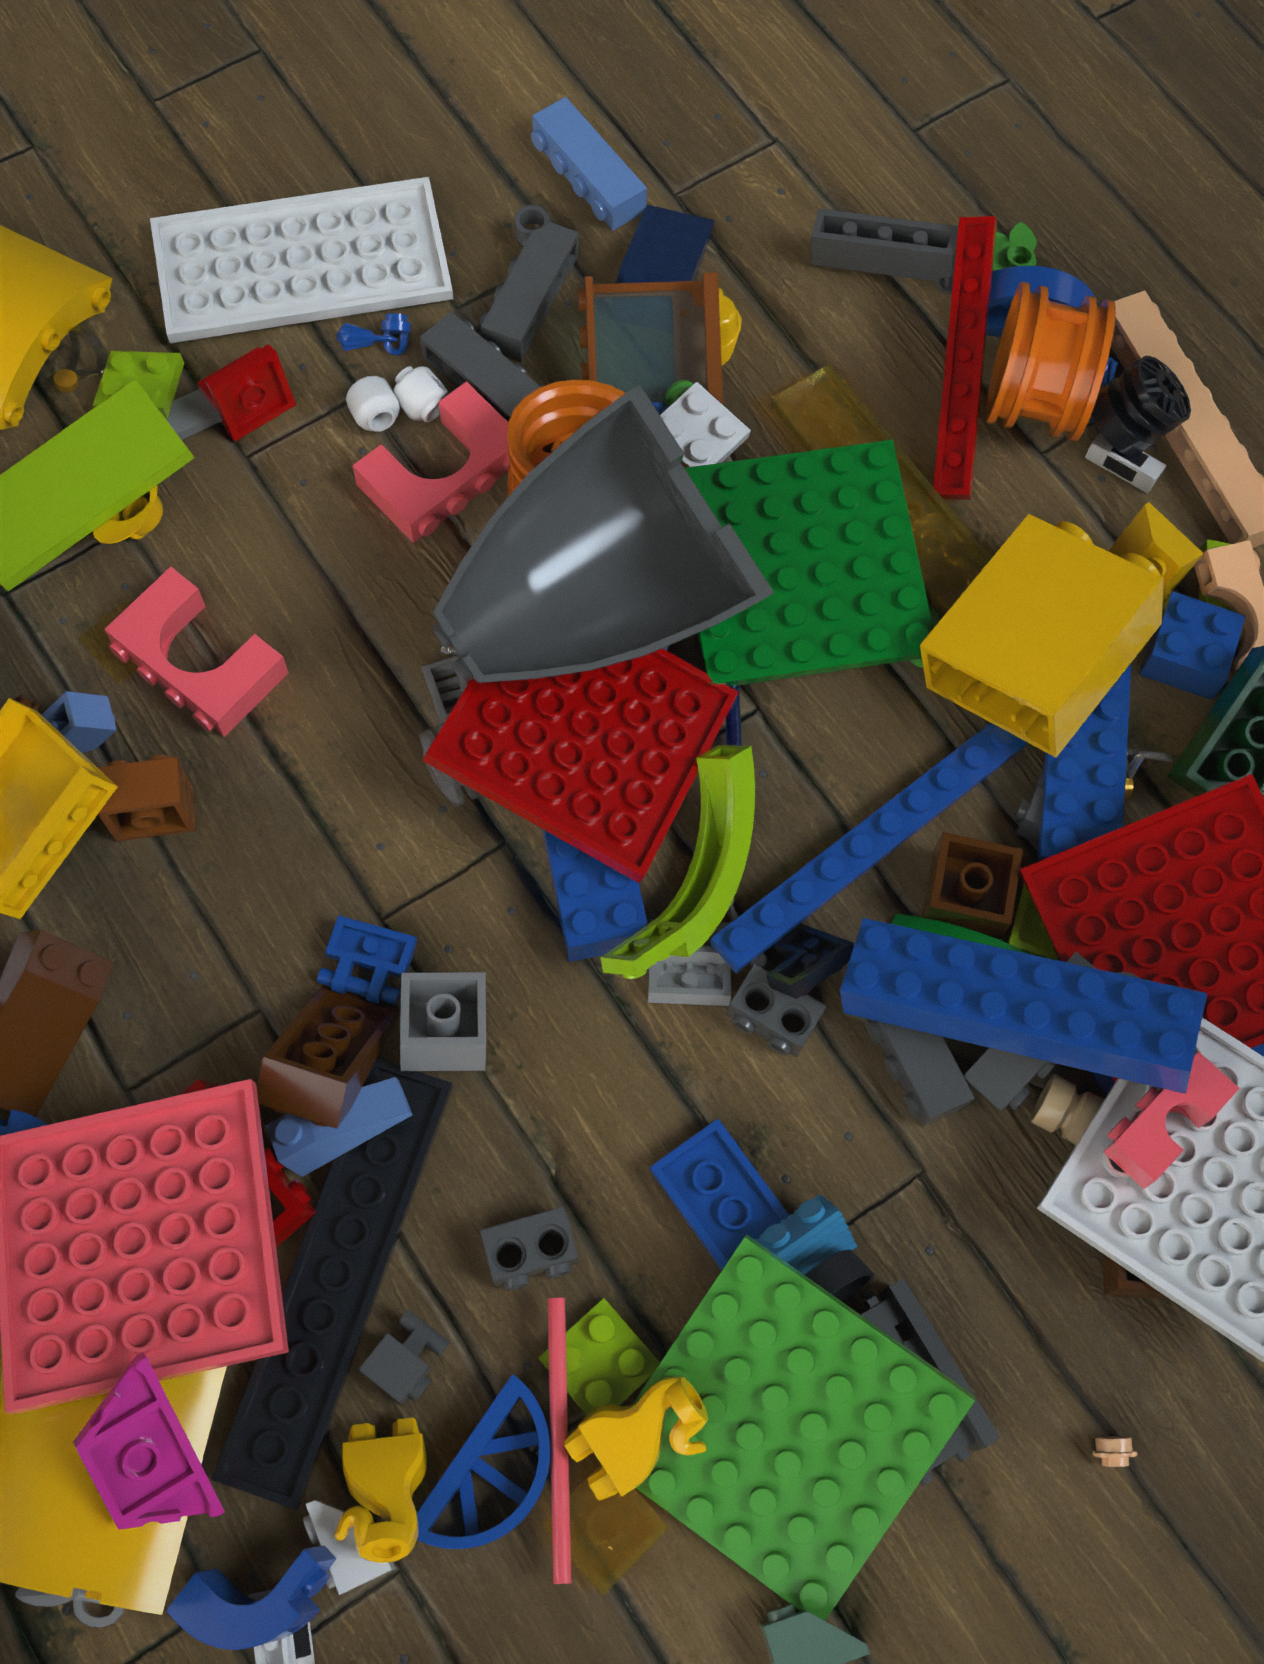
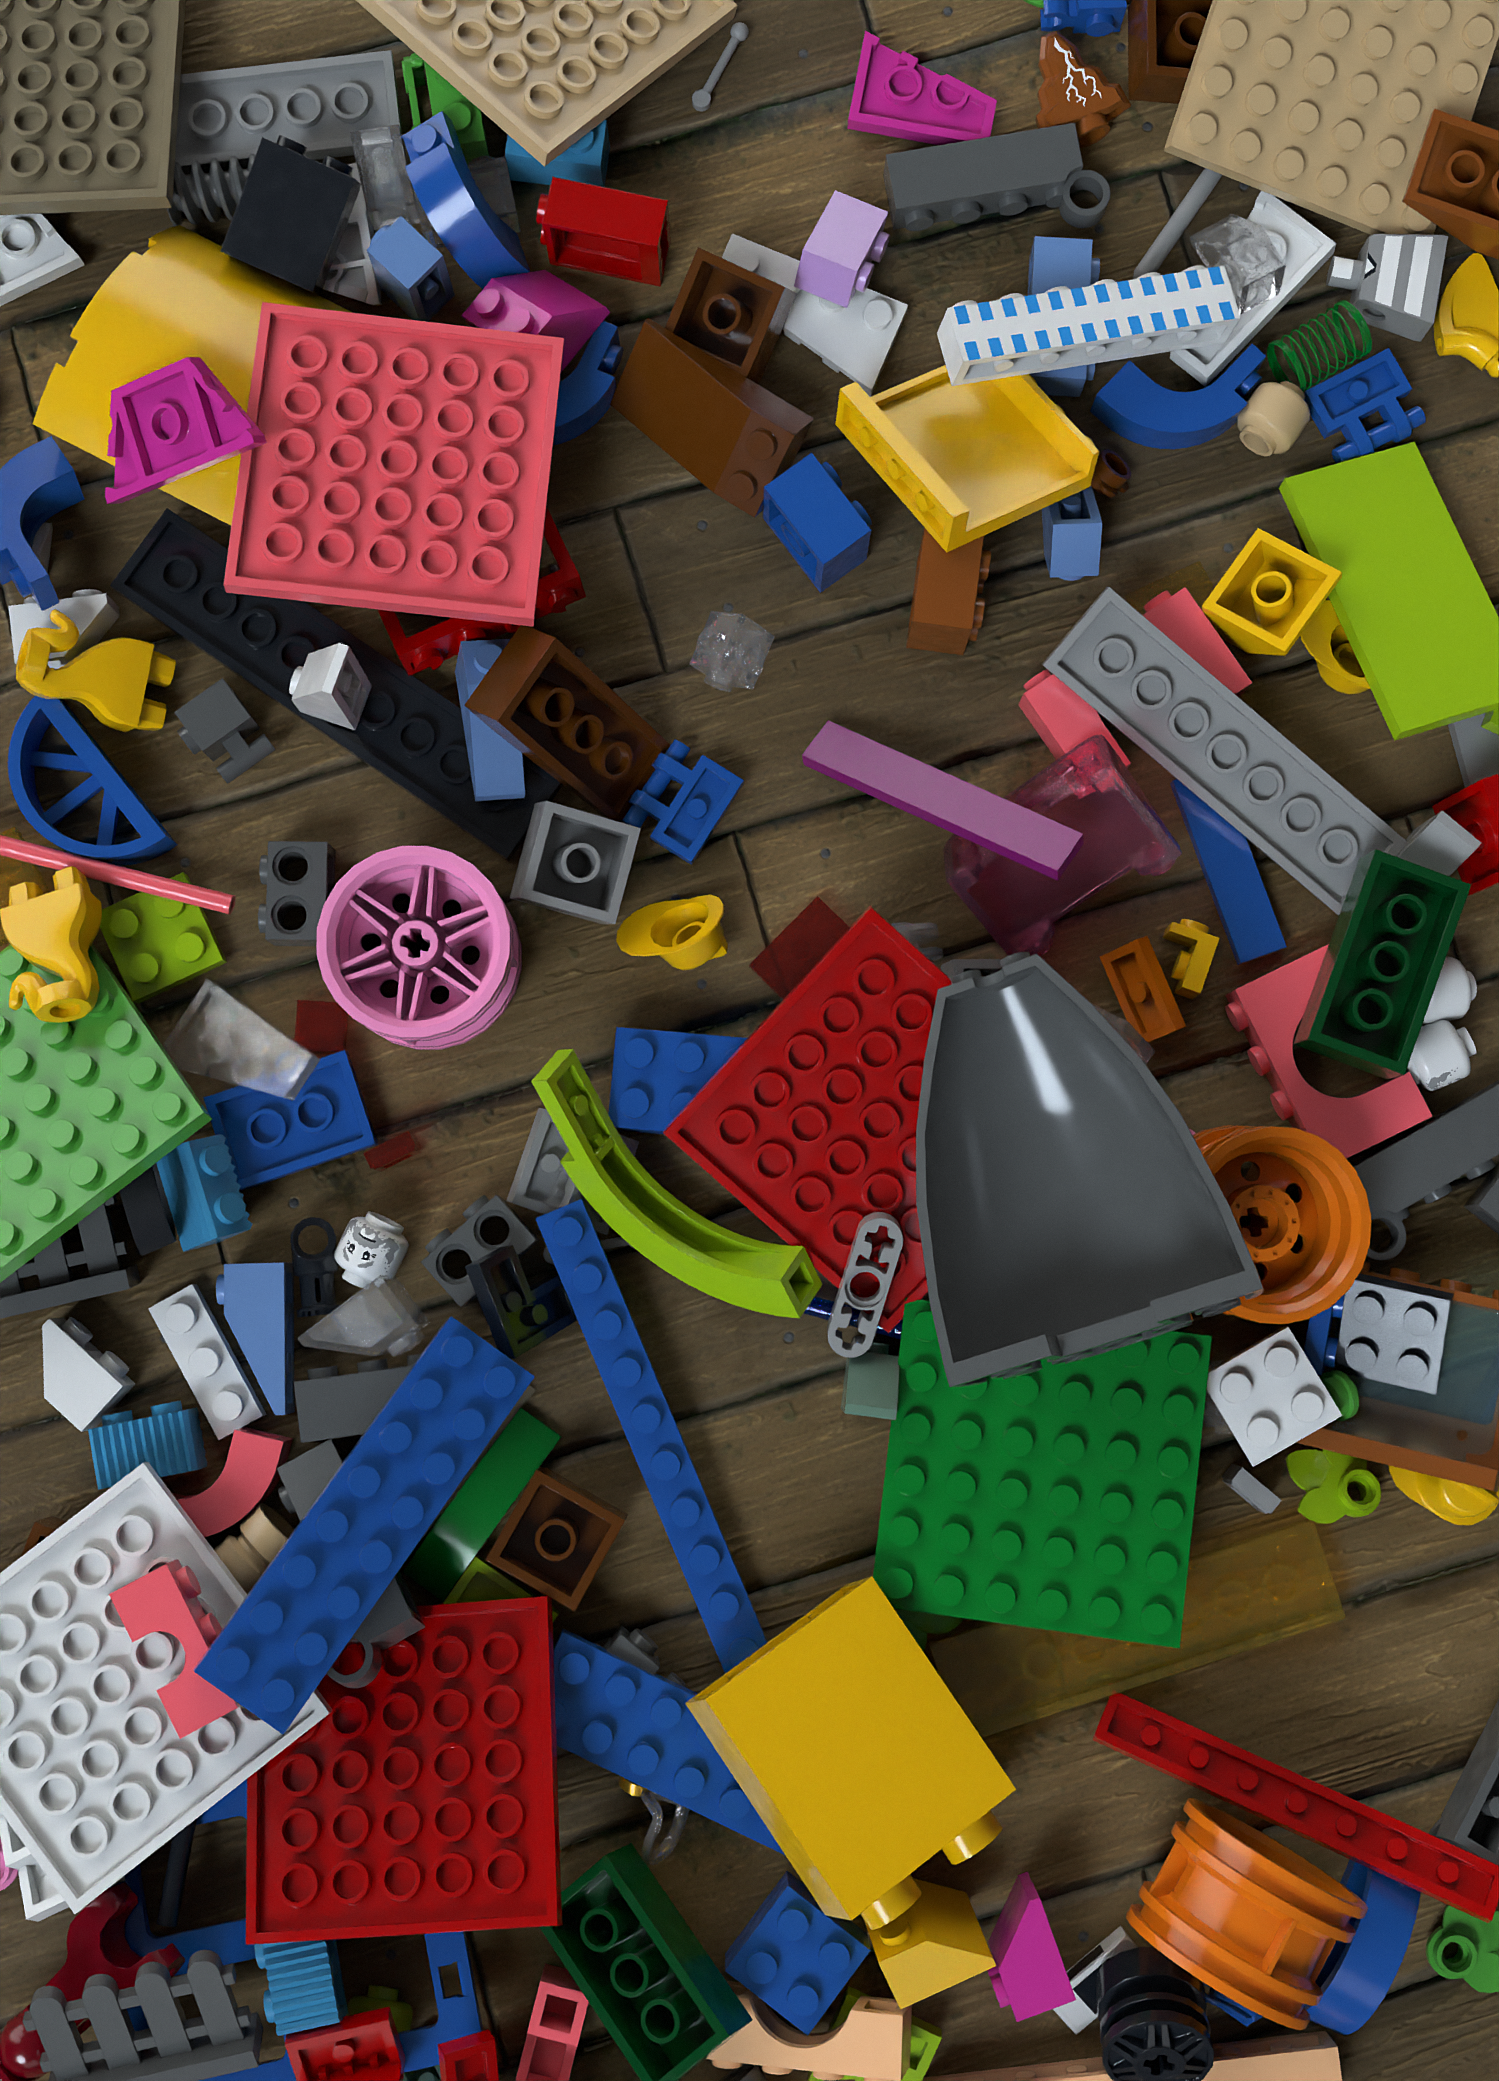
camera: 110 degrees right, 15 degrees up
(100, 565) = (1269, 595): none -> yellow slope
(108, 909) = (817, 521): none -> blue brick
(227, 575) = (1219, 748): none -> light grey plate
(232, 952) = (731, 651): none -> clear brick
(276, 425) = (1439, 844): none -> light grey slope
(313, 561) = (1231, 879): none -> blue tile
(318, 755) = (943, 800): none -> magenta tile
(329, 668) = (1120, 831): none -> clear pink windscreen
(344, 1259) = (331, 686): none -> white slope
(367, 424) = (1382, 964): none -> dark green brick
(393, 560) = (1193, 965): none -> yellow bracket
(421, 593) = (1142, 989): none -> orange plate
(471, 844) = (798, 948): none -> clear red tile
(475, 931) = (677, 930): none -> yellow piece
(512, 1071) = (364, 906): none -> bright pink wheel
(628, 359) = (1394, 1333): none -> plate
(635, 1198) = (321, 1026): none -> clear red tile
(673, 1258) = (237, 1045): none -> clear wing
(694, 717) = (841, 1315): none -> light grey beam
(719, 1103) = (393, 1151): none -> clear red tile
(744, 395) = (1325, 1480): none -> lime plate
(765, 437) = (1250, 1489): none -> light grey tile
(779, 696) = (871, 1383): none -> sand green slope
(804, 1095) = (370, 1249): none -> white head
(836, 1136) = (310, 1267): none -> black connector
(864, 1073) = (371, 1322): none -> clear slope
(881, 1170) = (261, 1316): none -> medium blue slope
(936, 1206) = (207, 1361): none -> white plate
(988, 1302) = (78, 1376): none -> white slope
(1023, 1232) = (167, 1440): none -> dark azure brick
(1024, 1142) = (243, 1484): none -> coral arch
(1124, 491) = (1026, 1957): none -> dark pink slope

